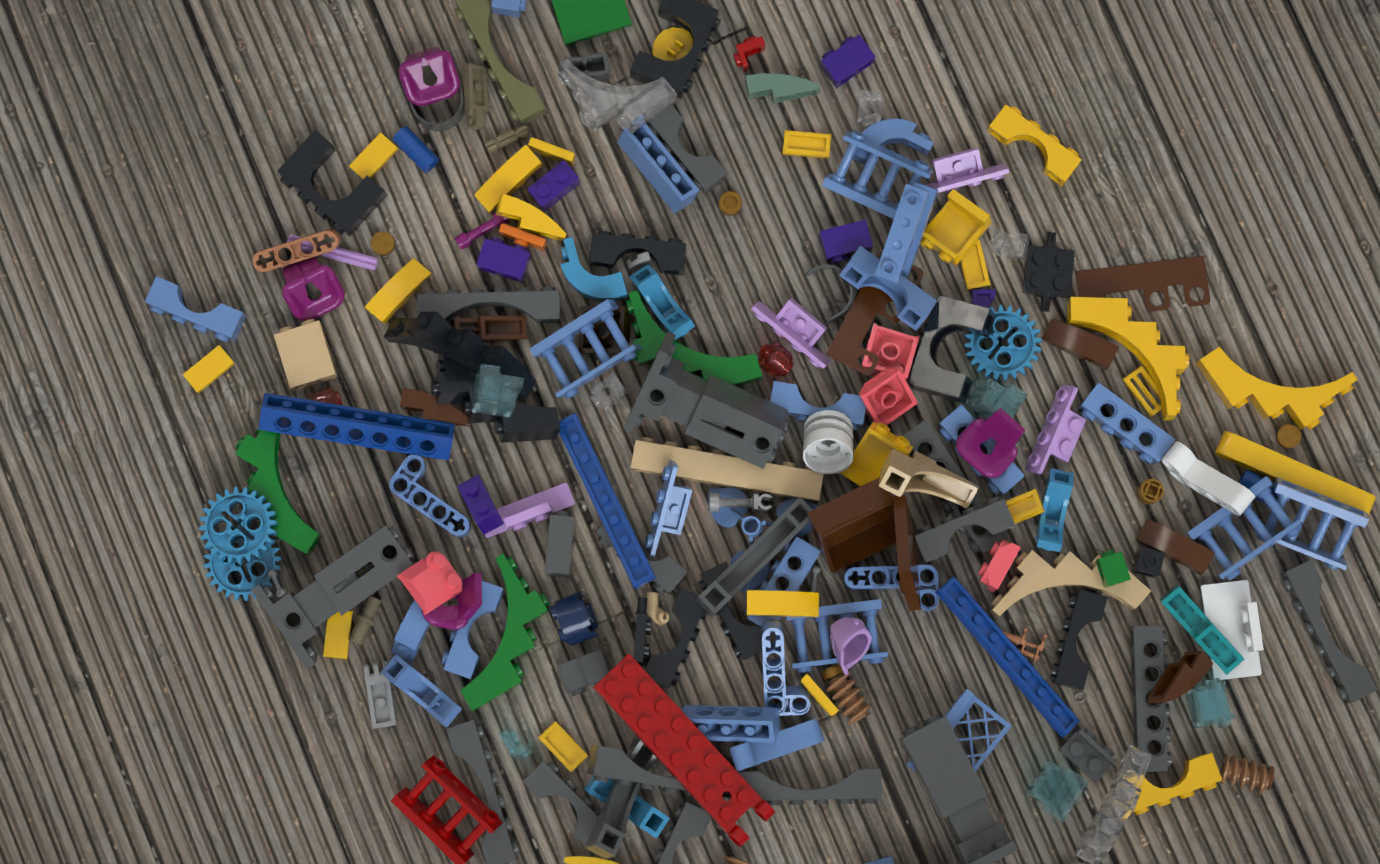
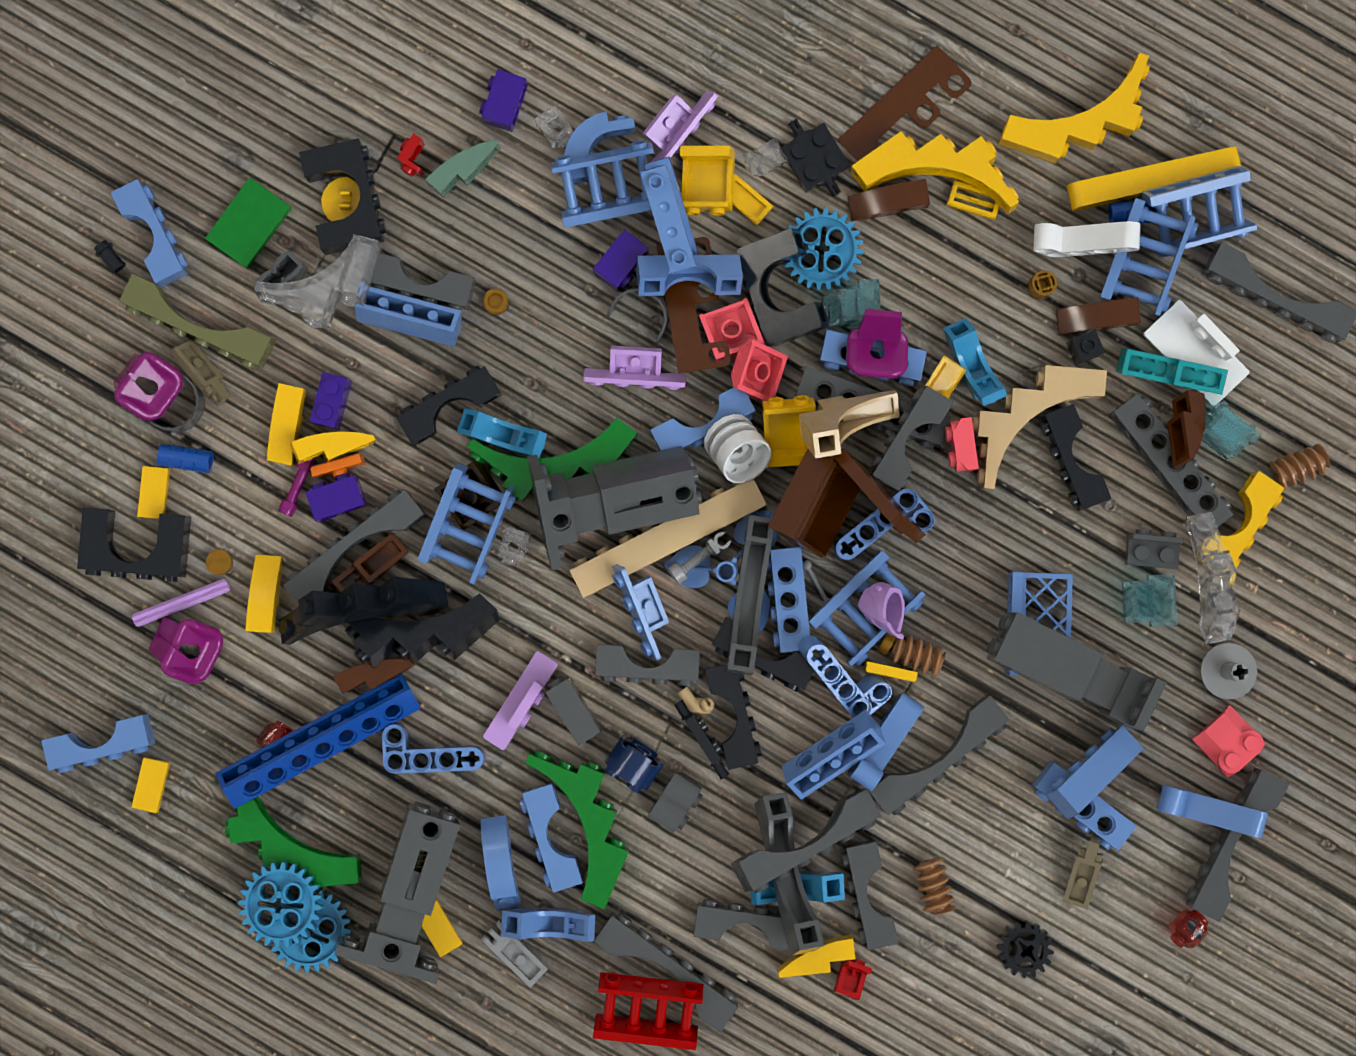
camera: 40 degrees left, 5 degrees up
(272, 574) = (343, 921): light grey hinge -> none
(296, 250) = (148, 625): nougat beam -> none
(305, 355) = (226, 710): tan brick -> none
(365, 620) = (453, 900): dark tan pin -> none
(431, 581) = (486, 827): coral slope -> none
(457, 616) = (527, 842): magenta piece -> none
(480, 504) = (477, 726): dark purple brick -> none
(494, 392) = (417, 623): clear light blue plate -> none
(506, 138) = (257, 389): dark tan axle -> none
(512, 741) = (658, 908): clear light blue bracket -> none
(551, 151) = (305, 371): yellow tile -> none
(563, 746) = (704, 878): yellow tile -> none
(588, 285) = (428, 465): dark azure arch -> none
(606, 501) = (584, 643): blue tile -> none
(641, 260) = (456, 409): light grey tile -> none
(680, 747) = (807, 807): red hinge -> none
(775, 359) = (637, 409): clear red head -> none
(782, 603) = (802, 618): yellow slope -> none
(806, 144) = (523, 200): yellow tile -> none
(983, 297) = (775, 222): dark purple tile -> none
(1007, 656) = (1025, 517): blue tile -> none
(1012, 126) = (752, 53): yellow arch -> none
(1017, 640) = (1023, 496): nougat piece -> none
(1058, 432) = (926, 292): lavender bracket -> none
(1112, 568) = (1061, 376): green brick -> none
(1159, 439) = (1018, 235): medium blue brick -> none
(1288, 436) = (1123, 149): pearl gold tile -> none

